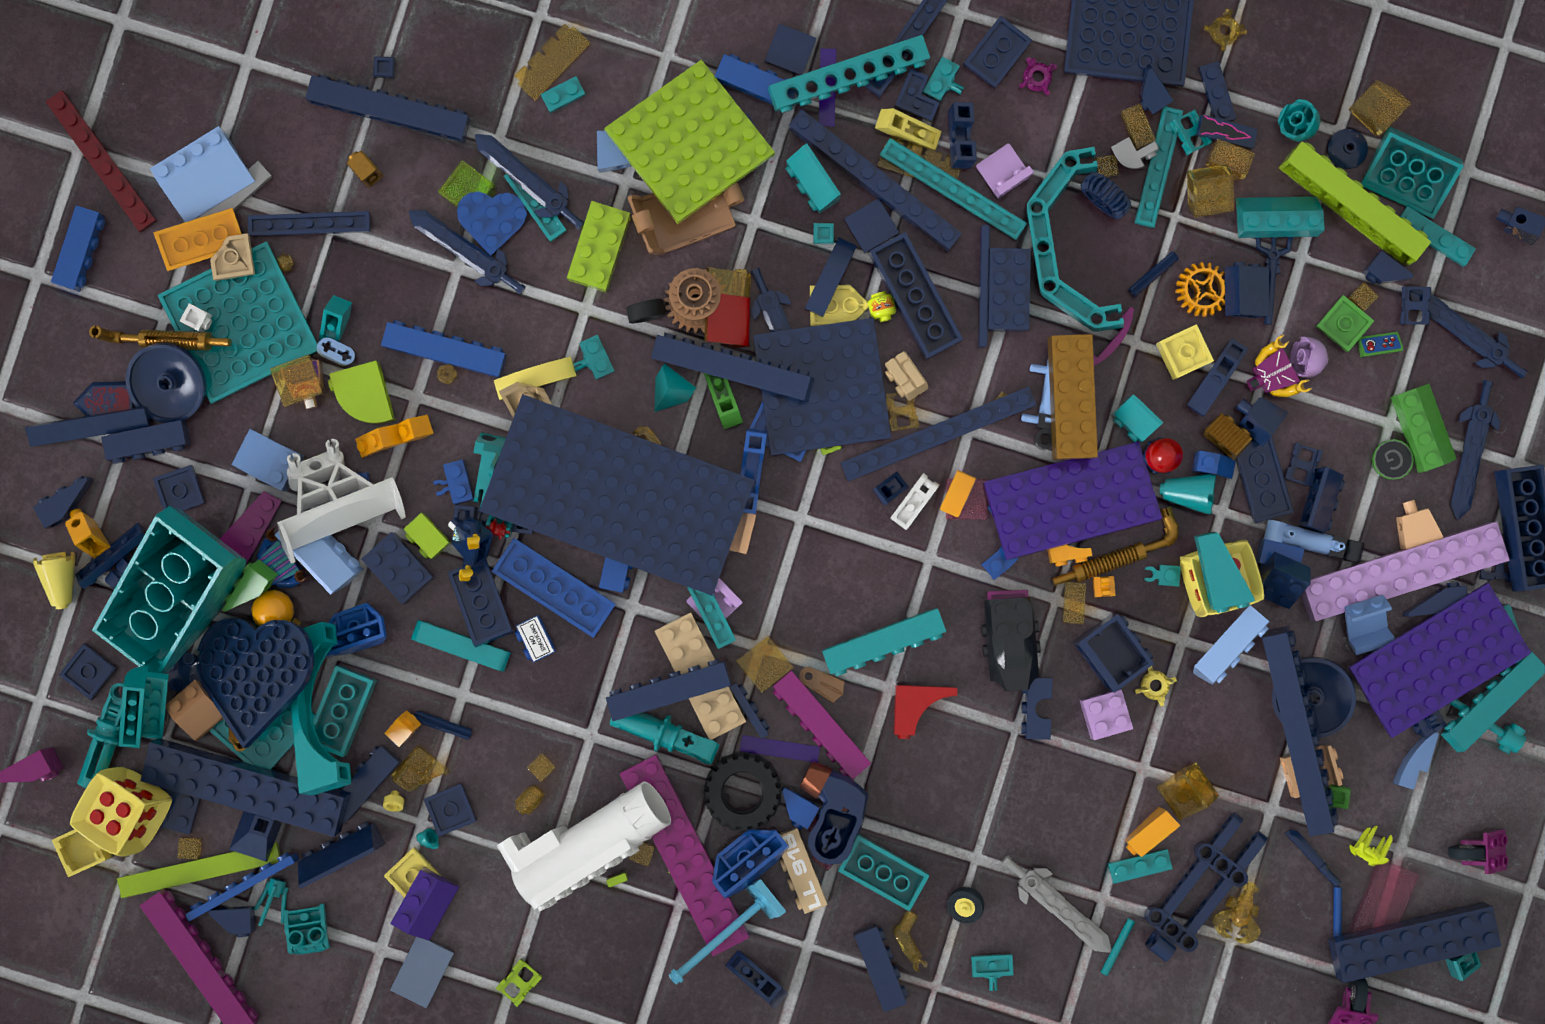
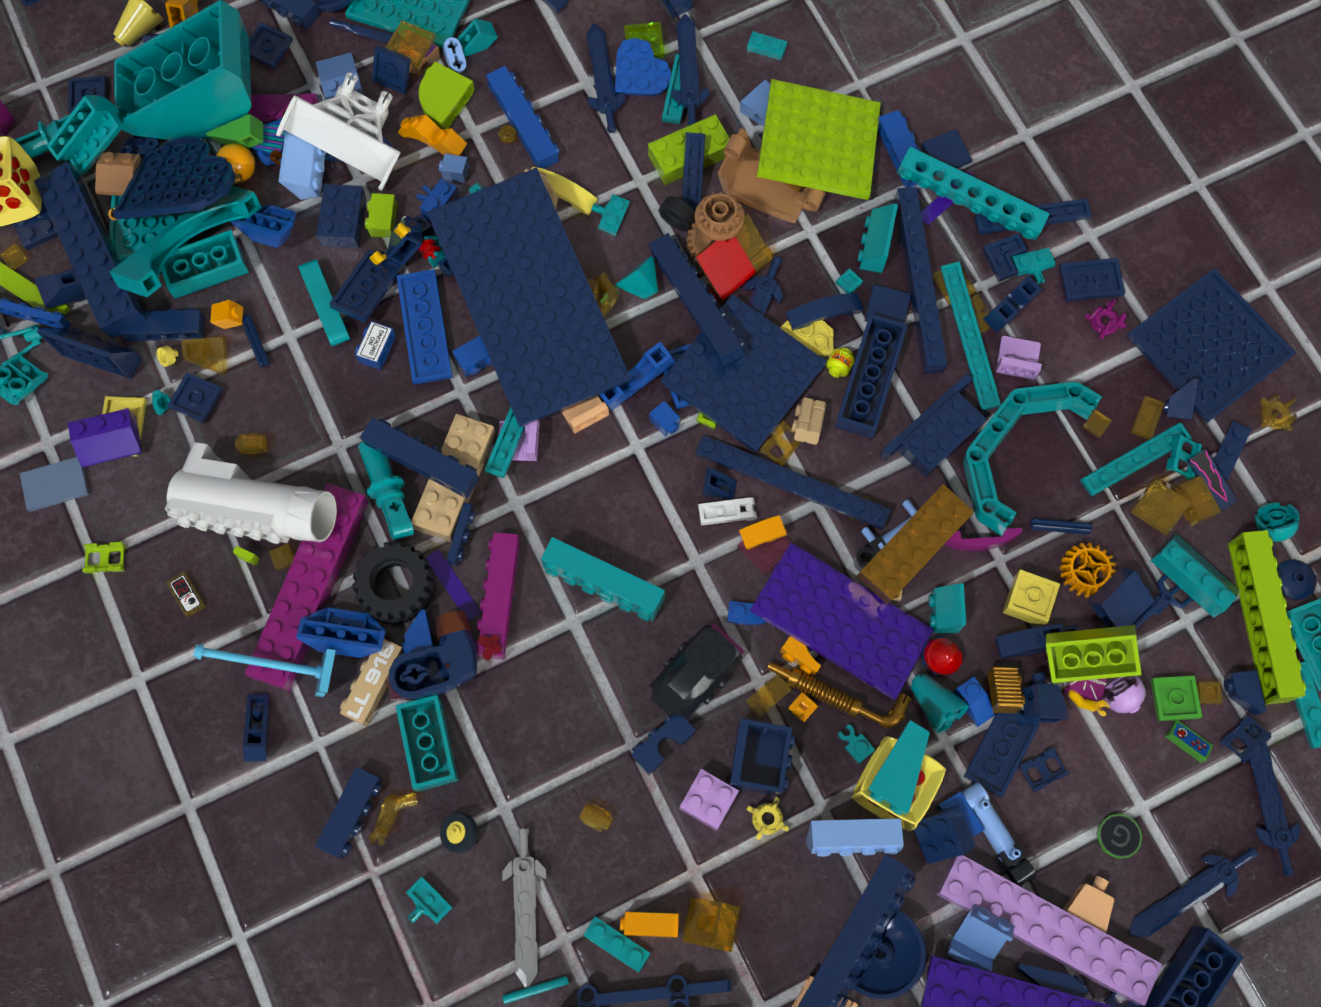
camera: 50 degrees right, 15 degrees down
(251, 394) = (362, 31): none -> dark blue piece
(303, 414) = (391, 69): none -> dark blue tile
(438, 443) = (454, 168): none -> medium blue brick
(541, 767) = (284, 432): clear yellow plate -> none
(557, 59) = (784, 23): clear yellow windscreen -> none
(604, 946) = (186, 594): none -> tile
(624, 266) = (693, 168): none -> dark blue tile
(663, 426) = (609, 296): none -> clear yellow arm
(724, 401) = (666, 319): bright green slope -> none
(764, 664) = (505, 514): clear yellow plate -> none
(802, 479) = (664, 419): none -> blue brick
(823, 683) = (531, 571): medium nougat piece -> none
(857, 765) = (490, 646): none -> dark red piece
(907, 128) = (977, 268): light yellow slope -> none
(912, 702) = (577, 645): red arch -> none
(1044, 802) = (595, 817): none -> clear yellow brick
(1105, 195) = (1078, 436): dark blue gear -> none
(1130, 157) = (1123, 433): light grey brick -> none
(1268, 358) = (1093, 654): none -> lime brick
(1322, 500) = (1035, 808): dark blue slope -> none
(1423, 428) = (1167, 836): bright green slope -> none

